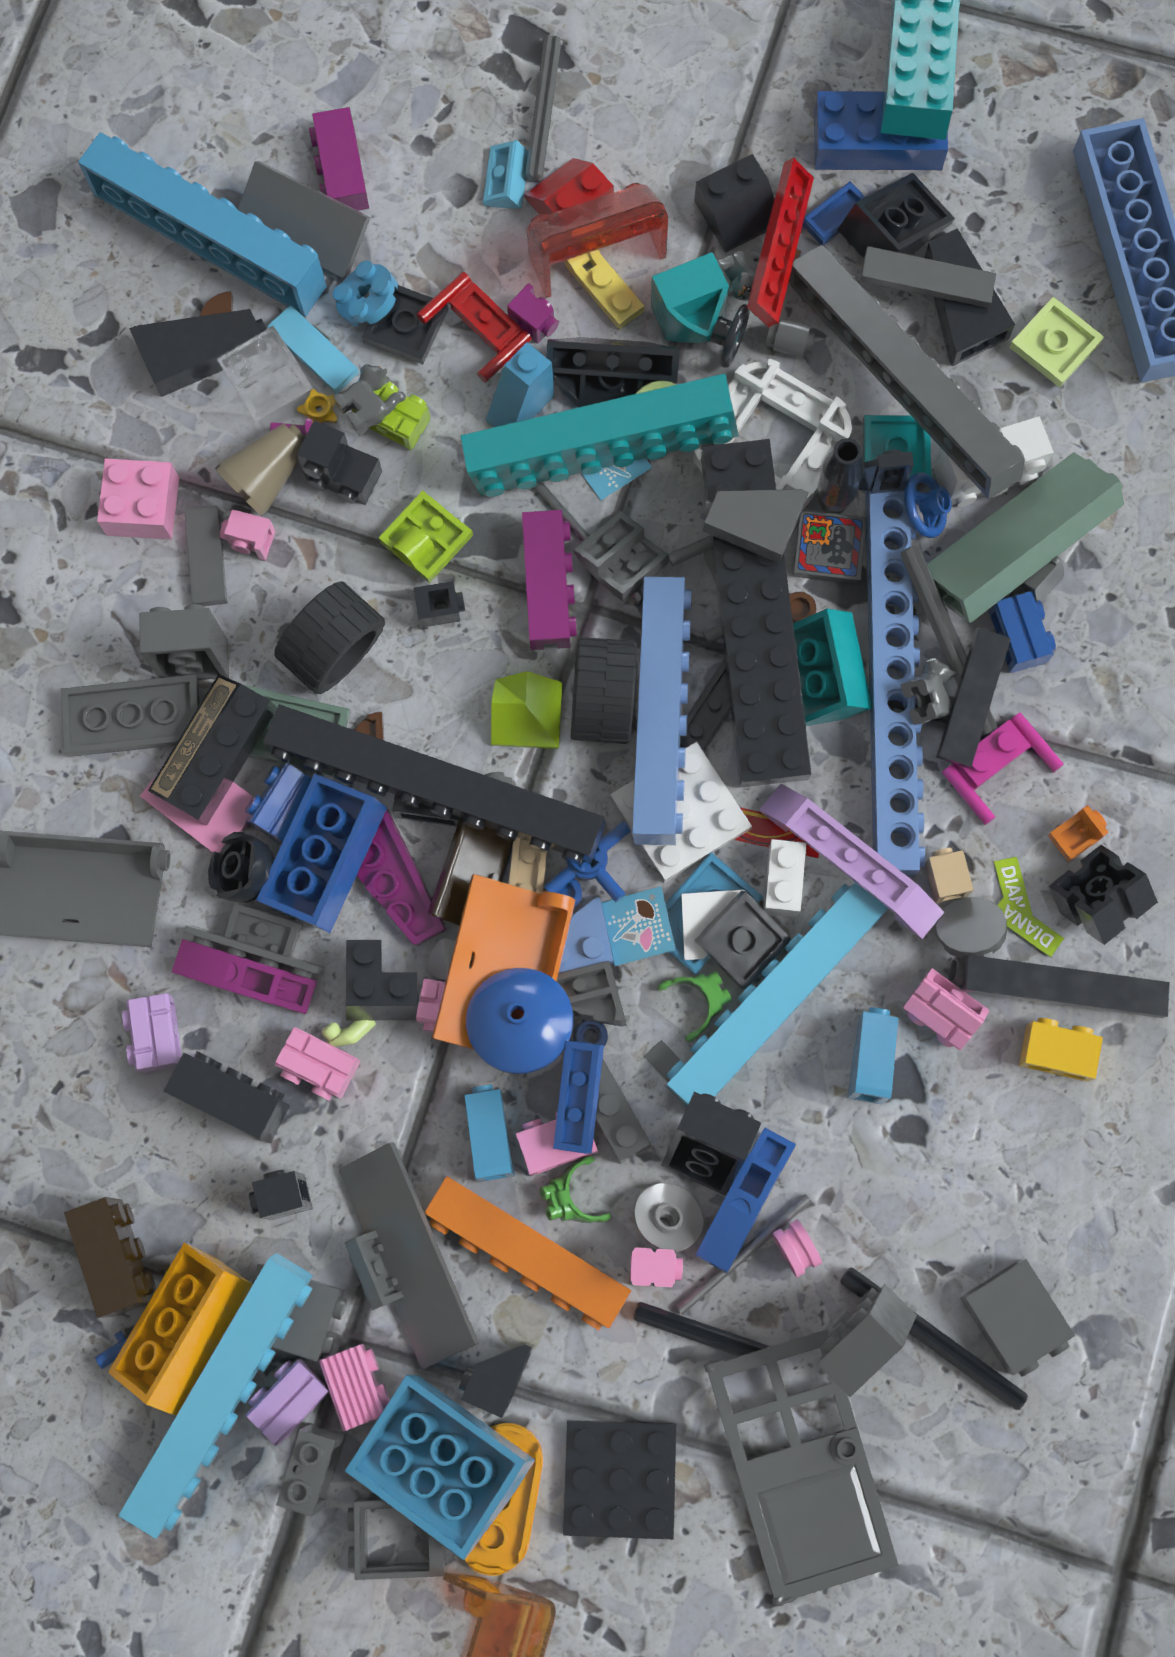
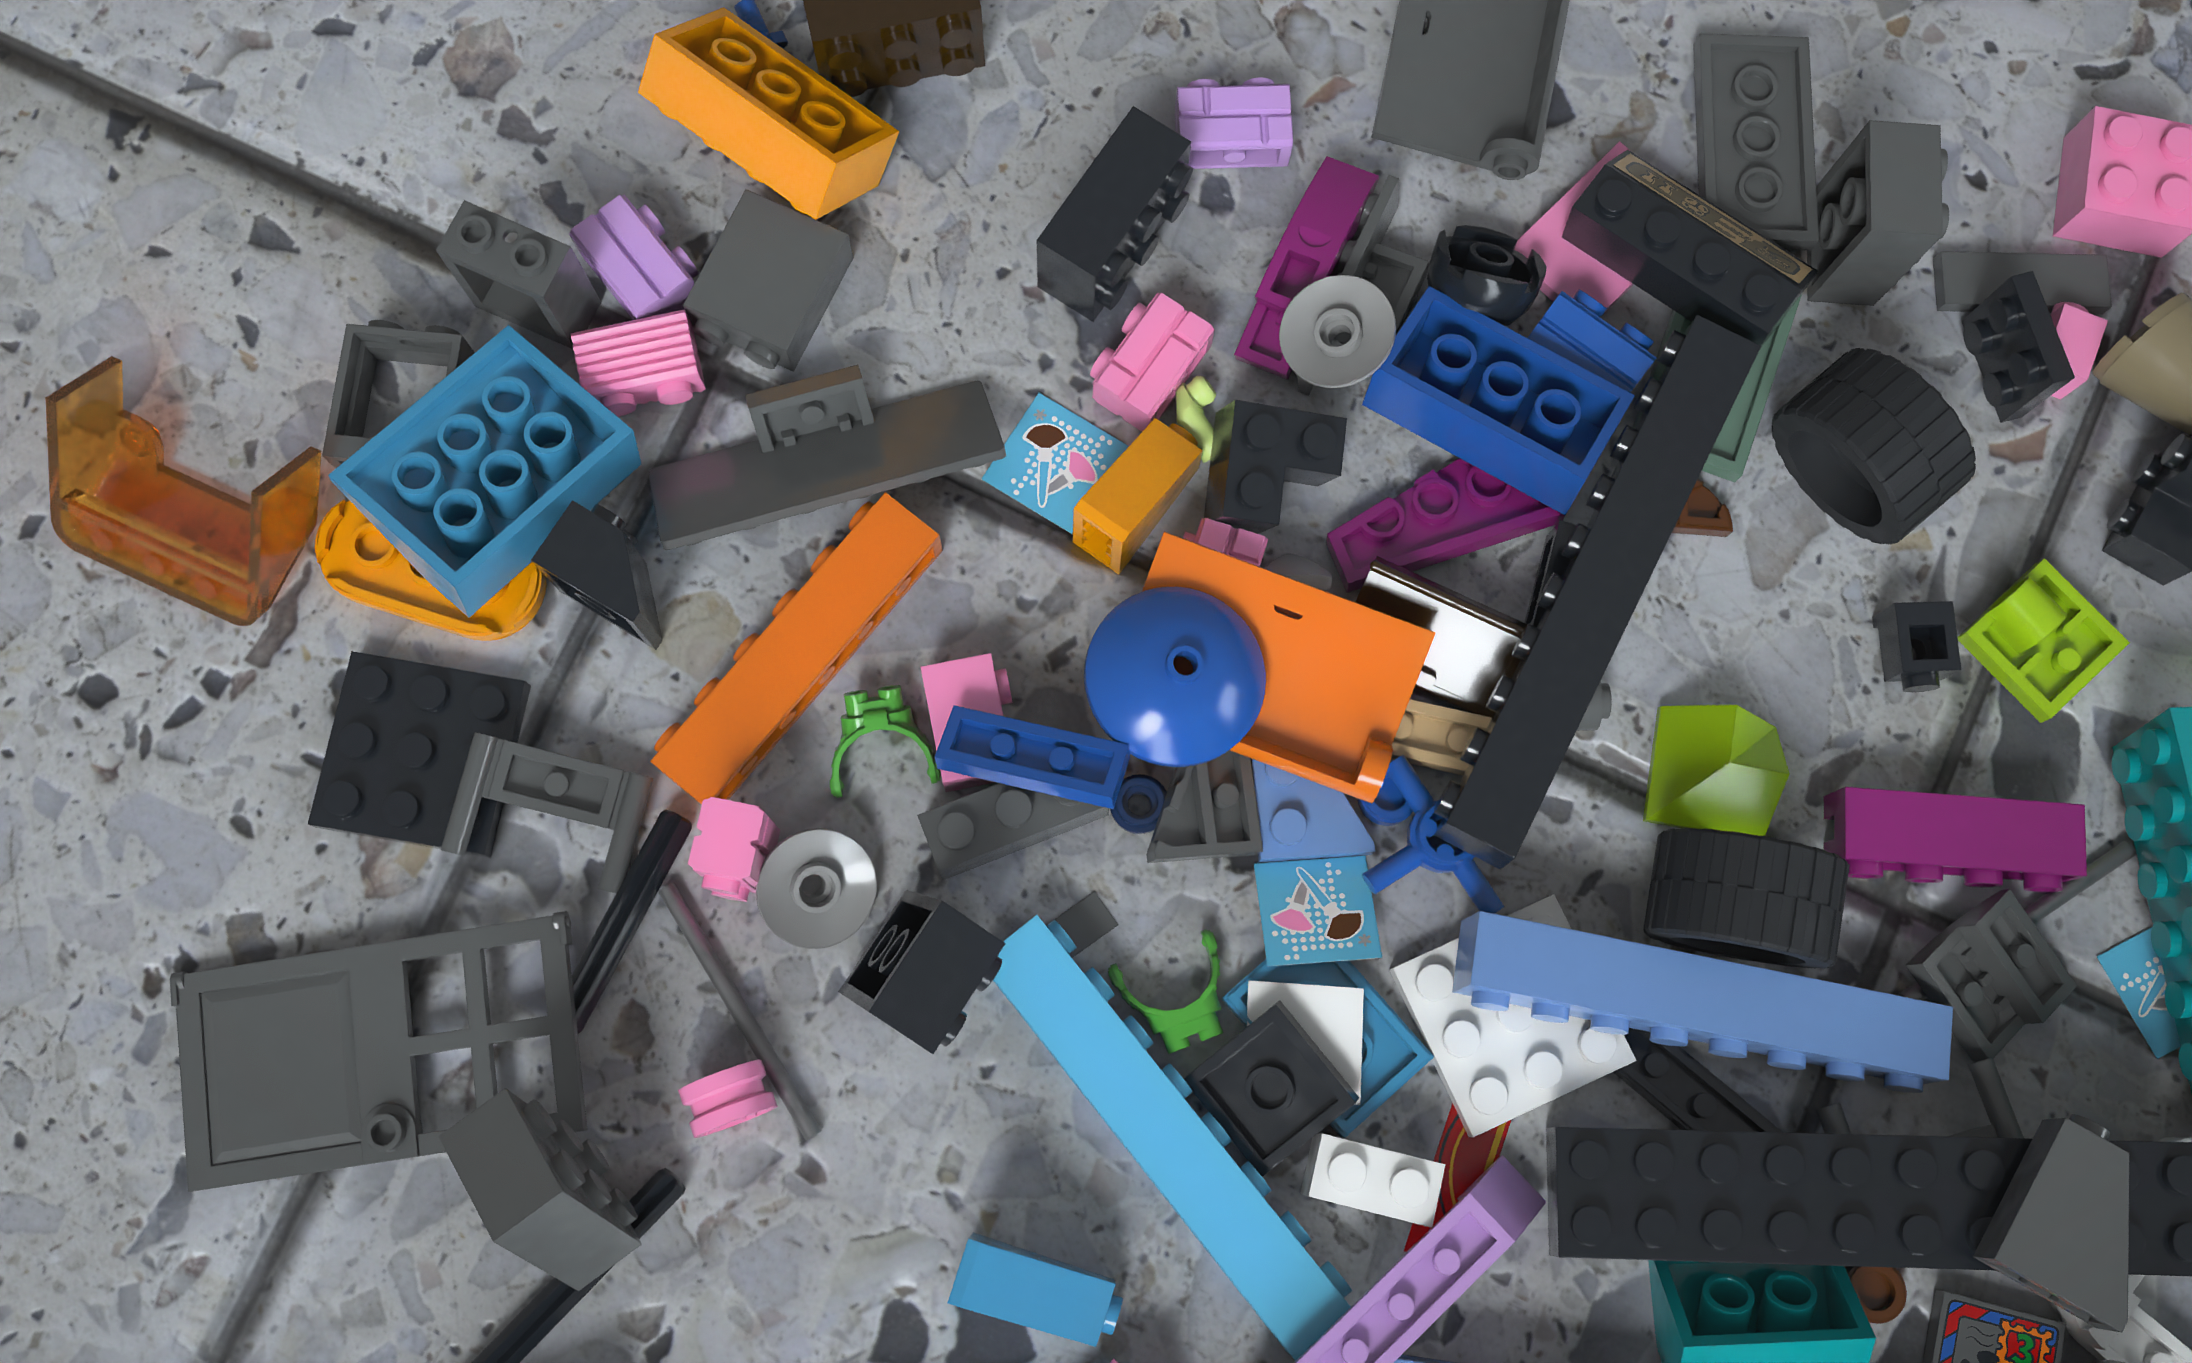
camera: 90 degrees right, 0 degrees up
(216, 1395) = (664, 155): medium azure brick -> none
(255, 559) = (2016, 347): none -> black plate
(280, 1195) = (948, 278): black brick -> none
(291, 968) = (1326, 310): none -> light grey dish
(384, 1114) = (1053, 460): none -> medium azure sticker
(403, 1060) = (1135, 493): none -> light orange slope
(488, 1134) = (994, 611): dark azure slope -> none
(630, 1388) = (555, 787): none -> dark grey plate
(745, 1200) = (825, 1024): blue slope -> none

